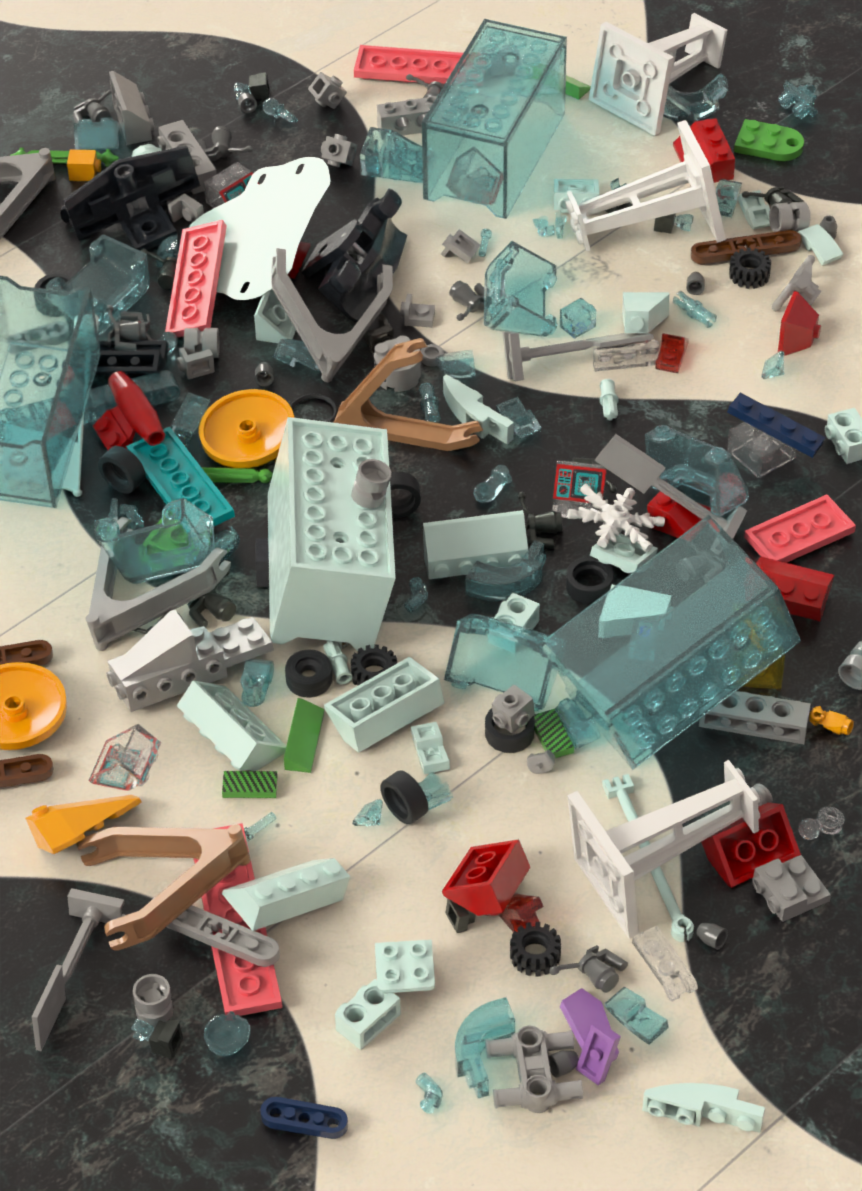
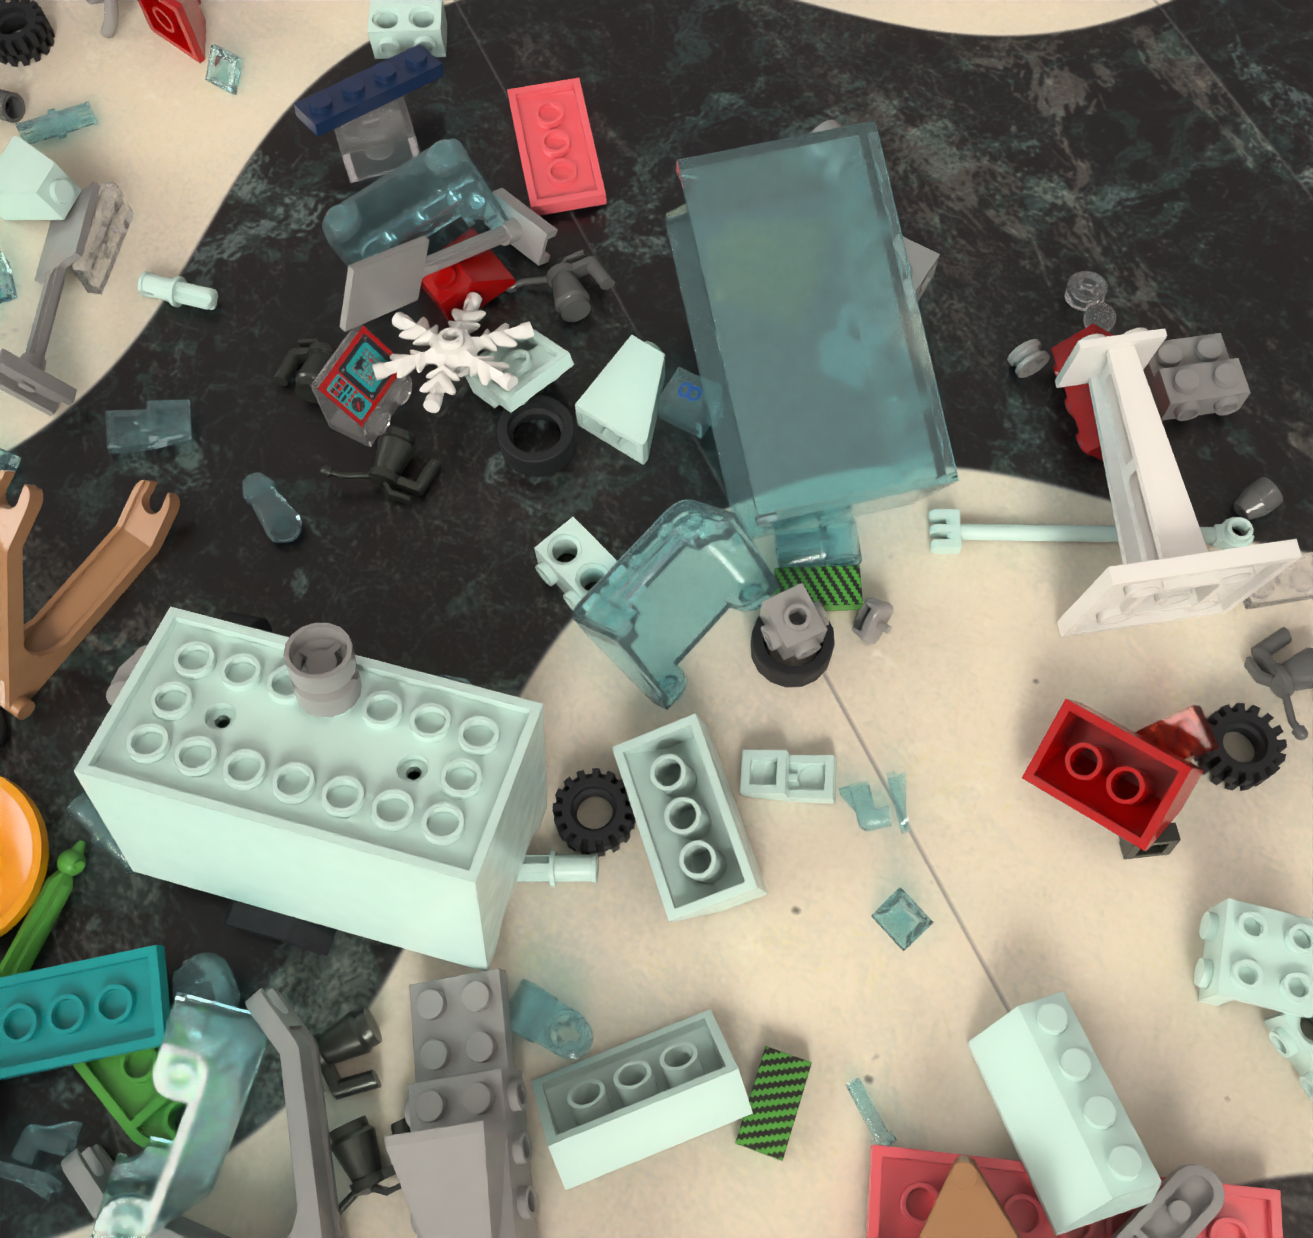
camera: 70 degrees left, 20 degrees up
(303, 736) = (699, 975): bright green slope -> none
(312, 685) = (545, 906): black tyre -> none
(404, 797) = (907, 848): black tyre -> none
(429, 403) = (51, 544): clear light blue pin -> none
(456, 544) = (408, 572): light aqua slope -> none
(469, 406) = (90, 490): light aqua slope -> none
(499, 583) = (490, 567): clear light blue arch -> none
(671, 353) = (138, 186): clear red slope -> none
(802, 588) = (651, 189): red slope -> none
(831, 720) = (923, 222): light orange arm -> none

